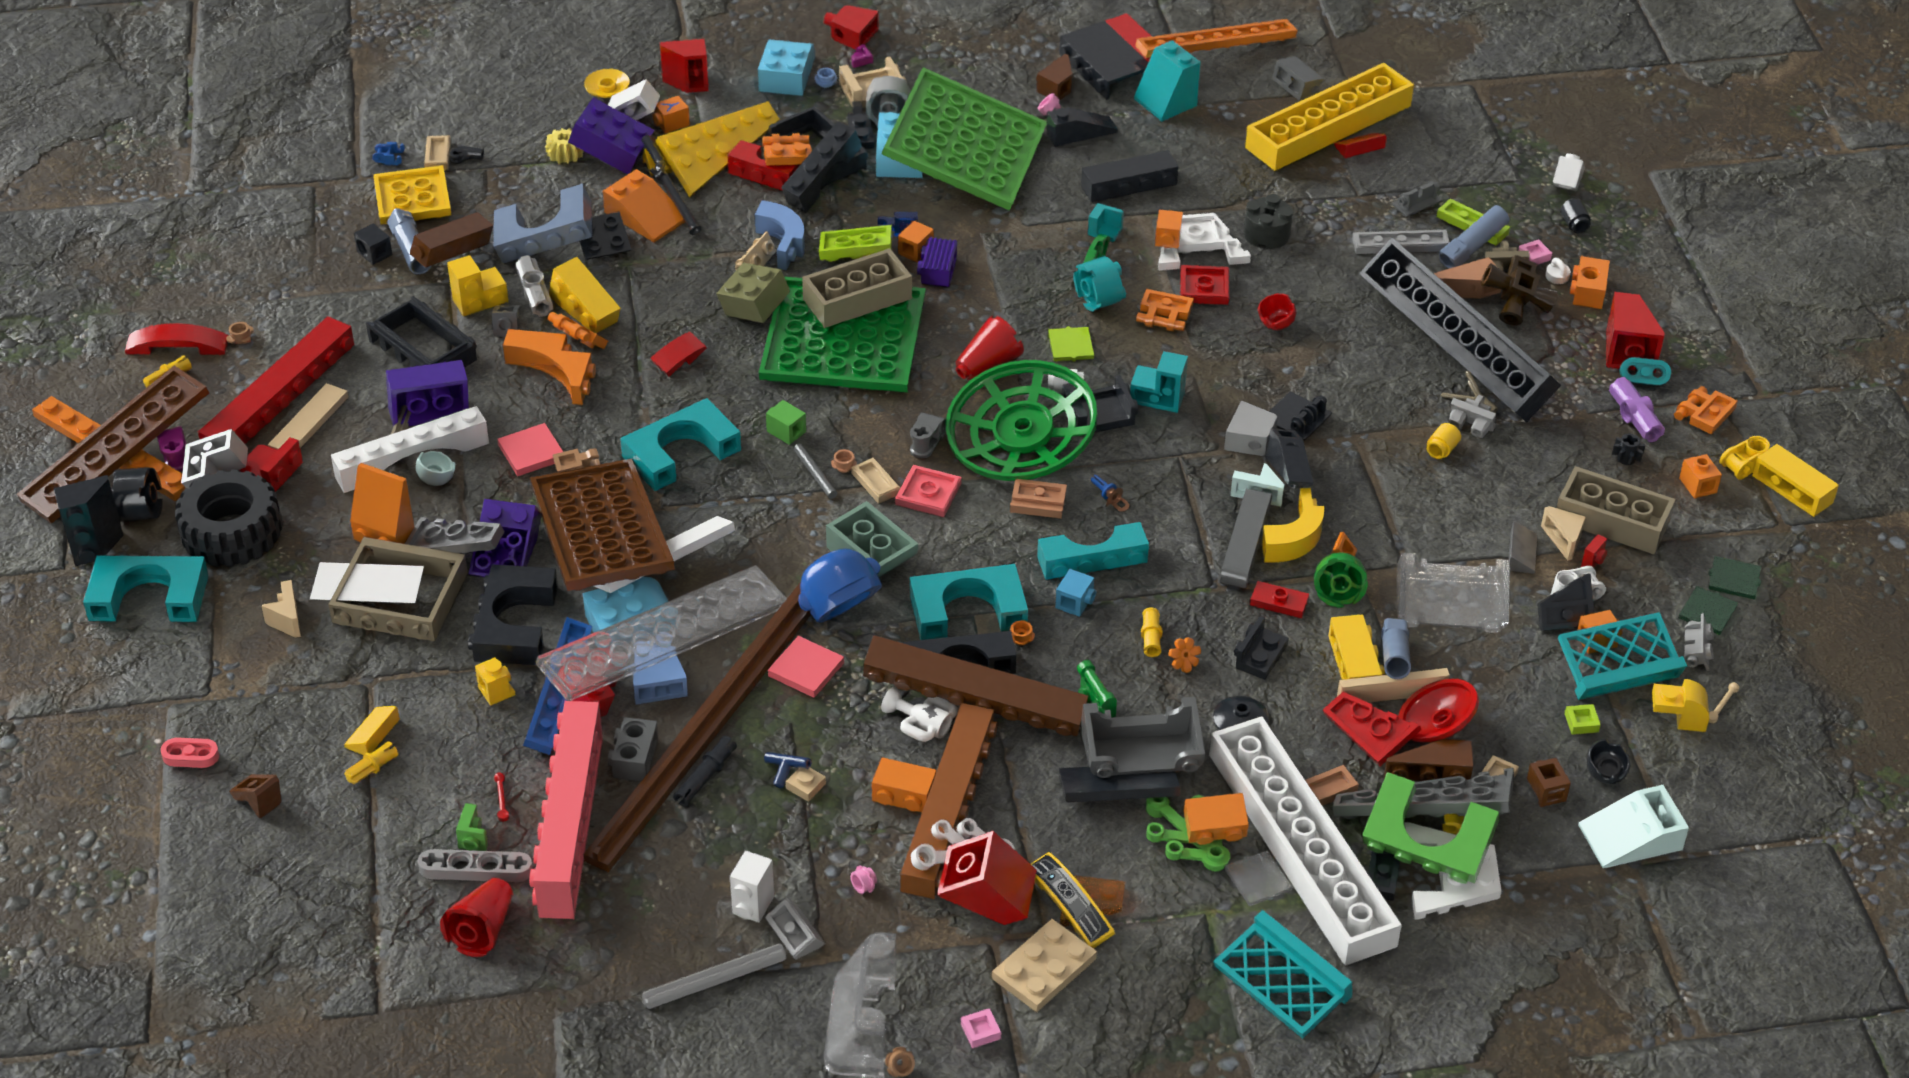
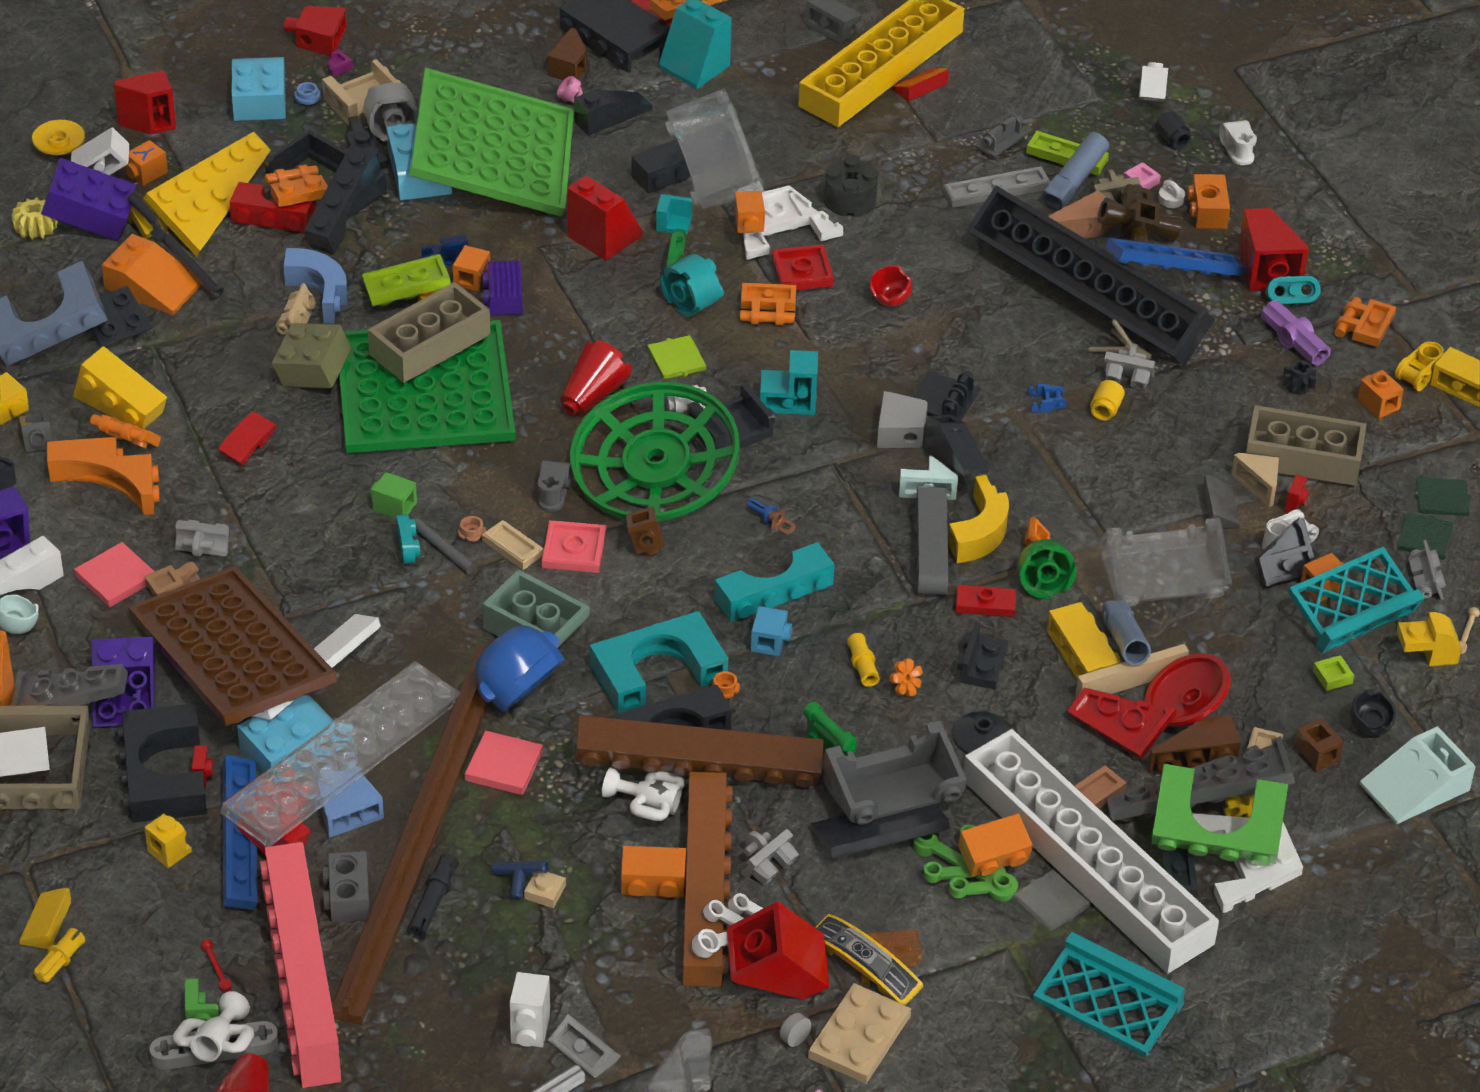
camera: 15 degrees left, 0 degrees up
(471, 856) = (215, 1033): none -> white piece
(534, 286) = (56, 387): light grey piece -> none
(546, 620) = (203, 763): none -> red plate
(609, 429) = (202, 538): none -> light grey hips
(697, 422) = (295, 512): teal arch -> none
(785, 453) = (406, 530): none -> teal plate
(863, 879) = (642, 980): bright pink plate -> none
(985, 950) = (795, 1029): none -> light grey tile
(991, 487) = (645, 531): none -> reddish brown brick
(1001, 795) = (760, 863): none -> light grey hips
(1037, 216) = (599, 218): none -> red slope
(1038, 498) = (697, 534): nougat plate -> none
(1154, 170) = (714, 149): none -> clear windscreen
(1395, 431) = (1047, 392): none -> blue piece
(1539, 324) = (1171, 256): none -> blue plate
(1633, 233) = (1238, 141): none -> white piece

